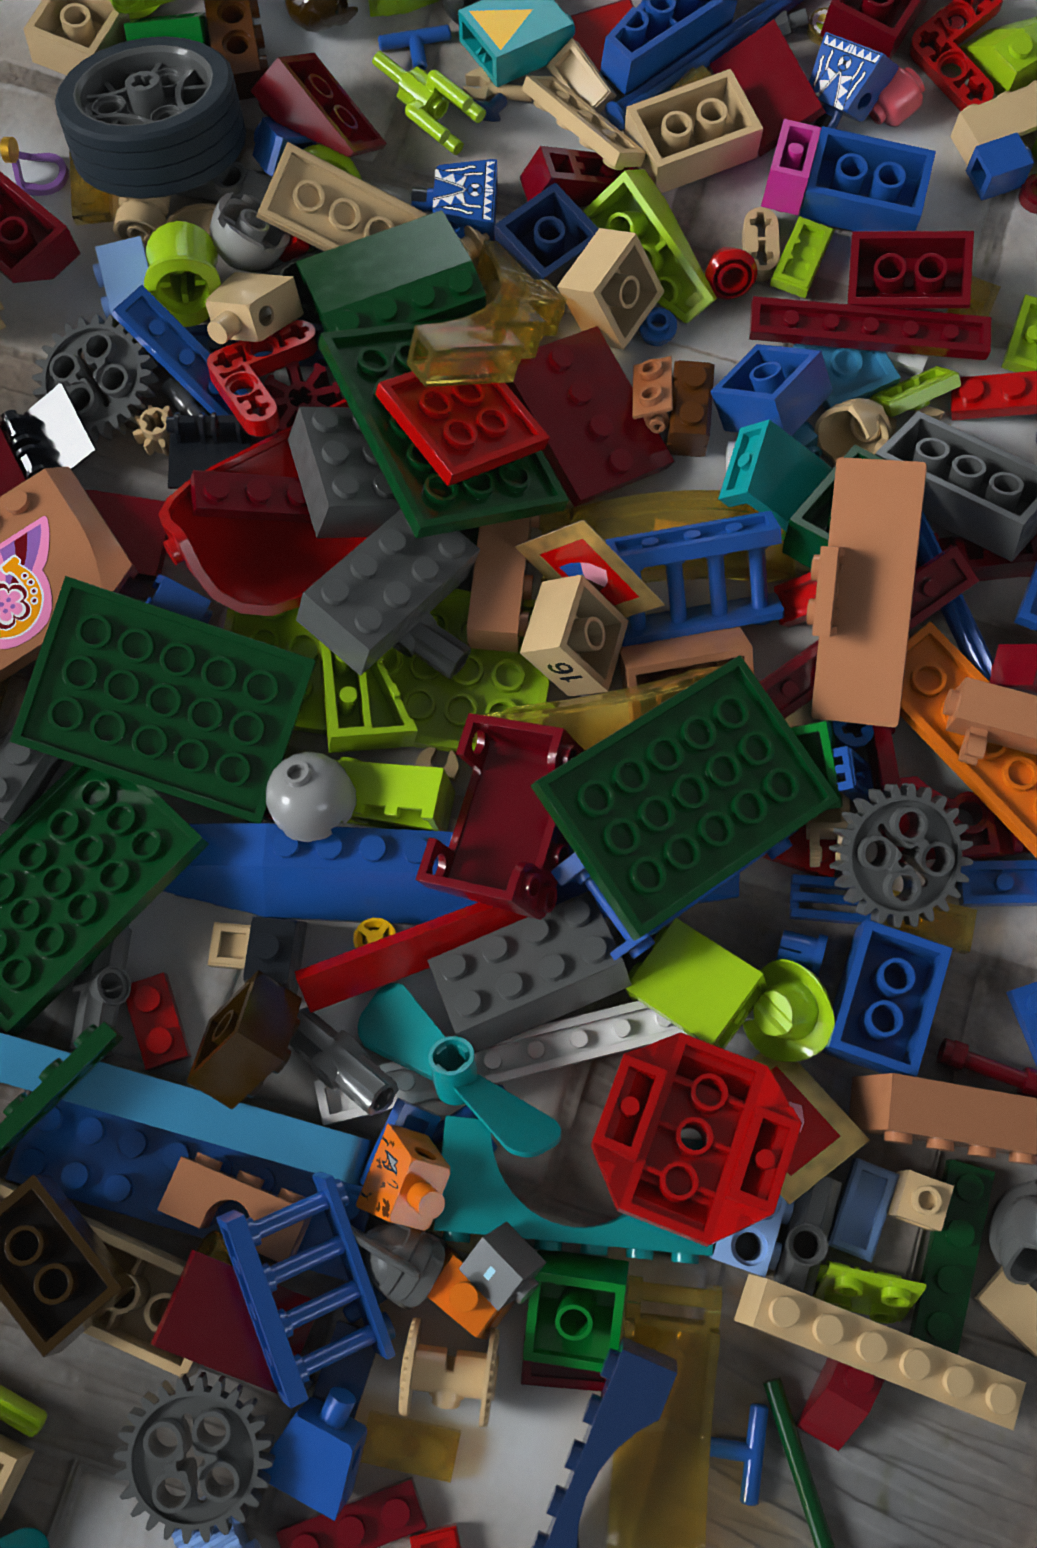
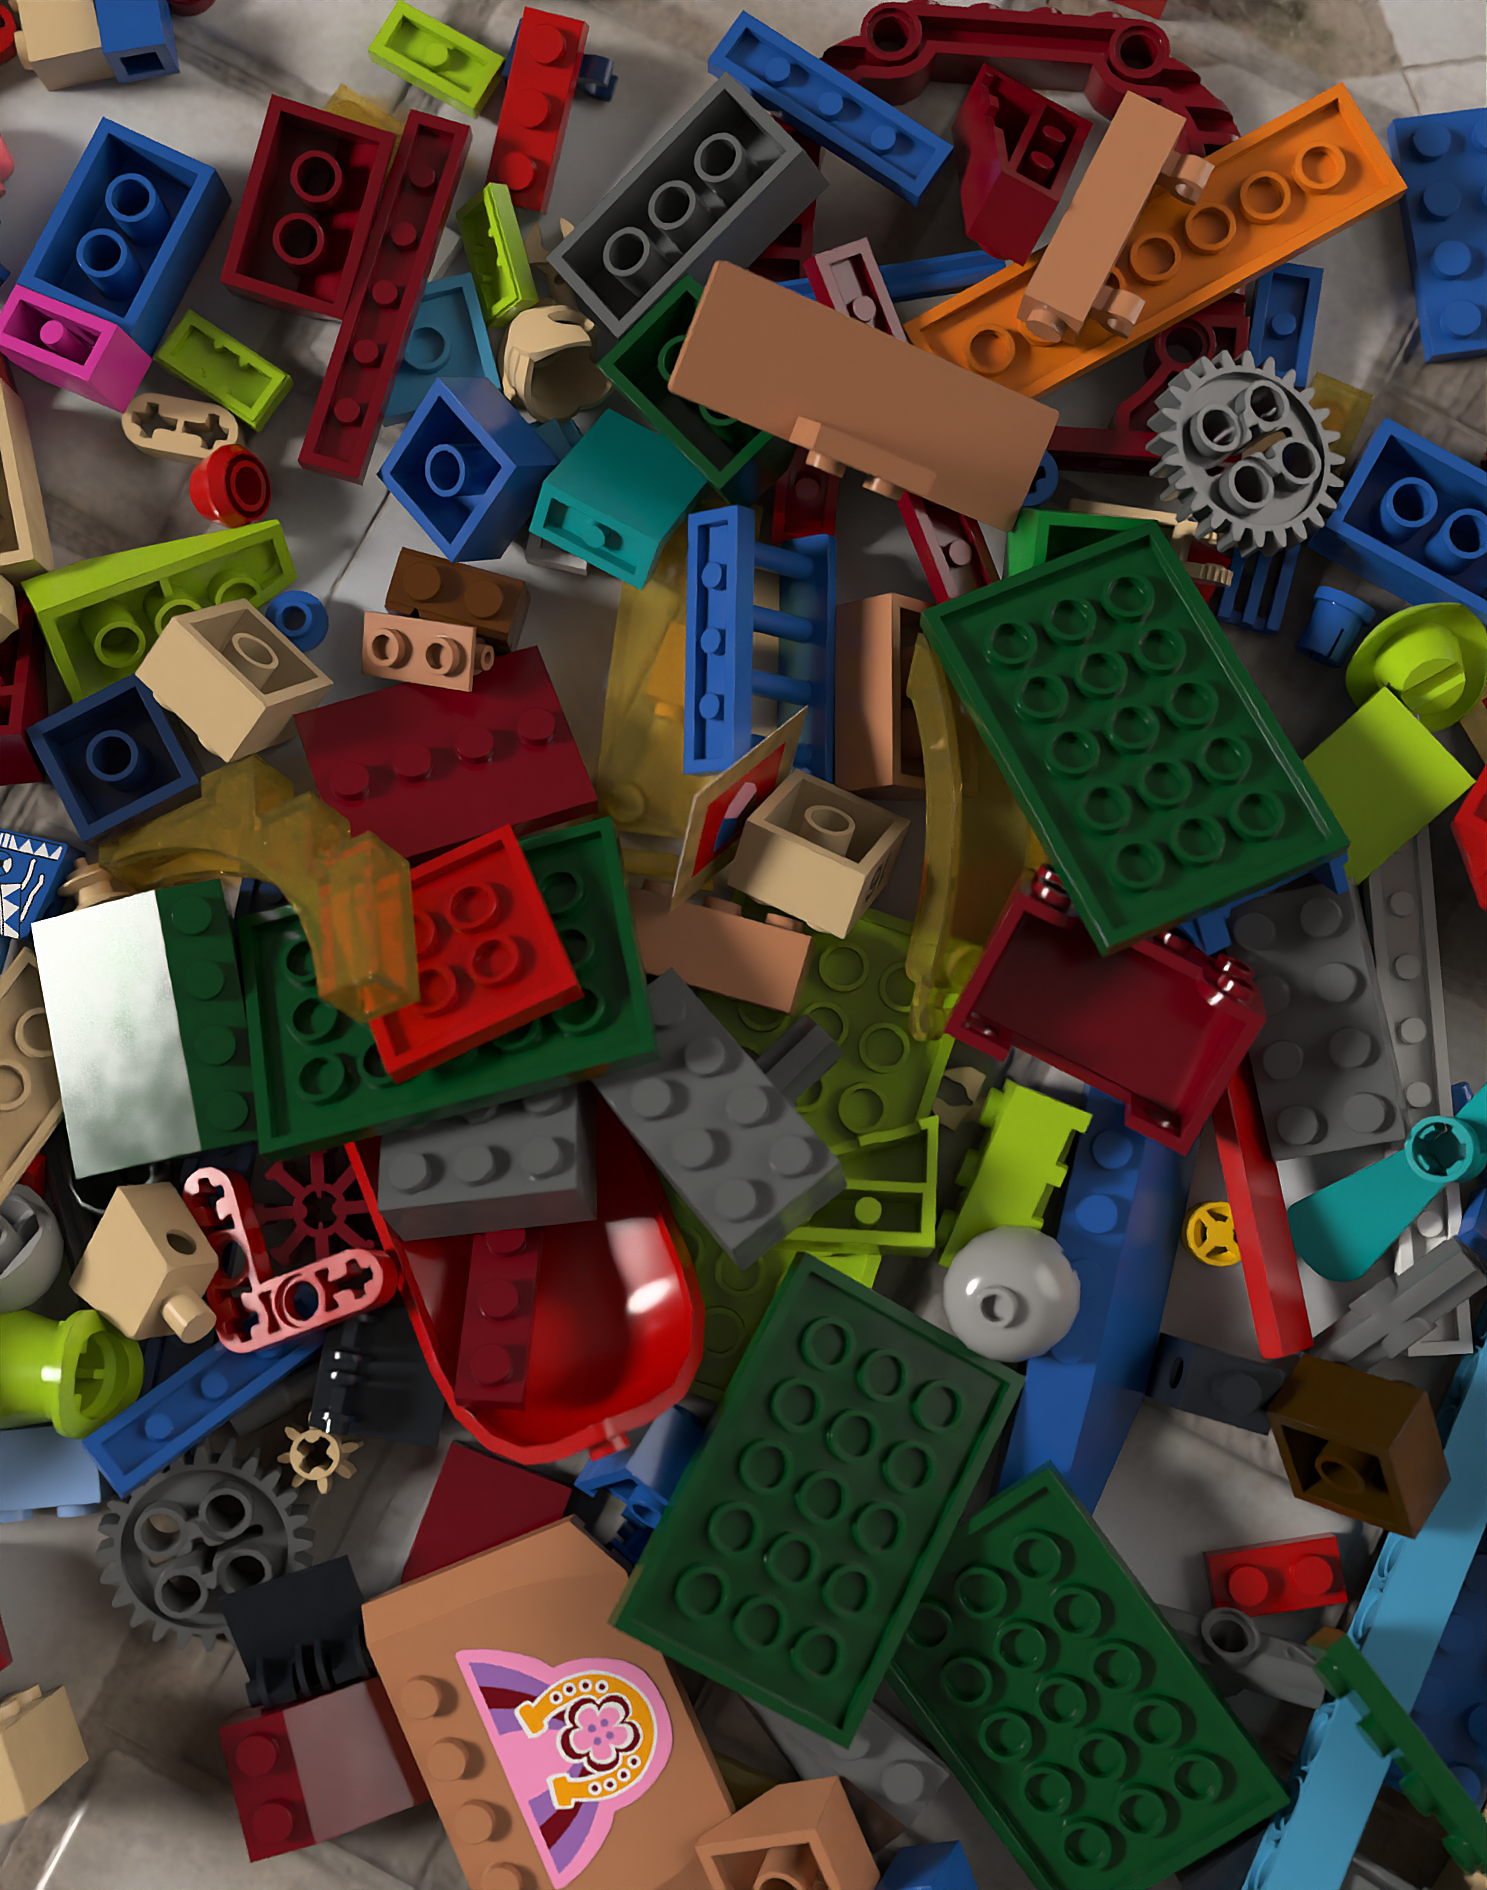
camera: 80 degrees left, 10 degrees up
(229, 946) = (1181, 1447): tan tile -> none
(855, 772) = (1106, 498): blue tile -> none

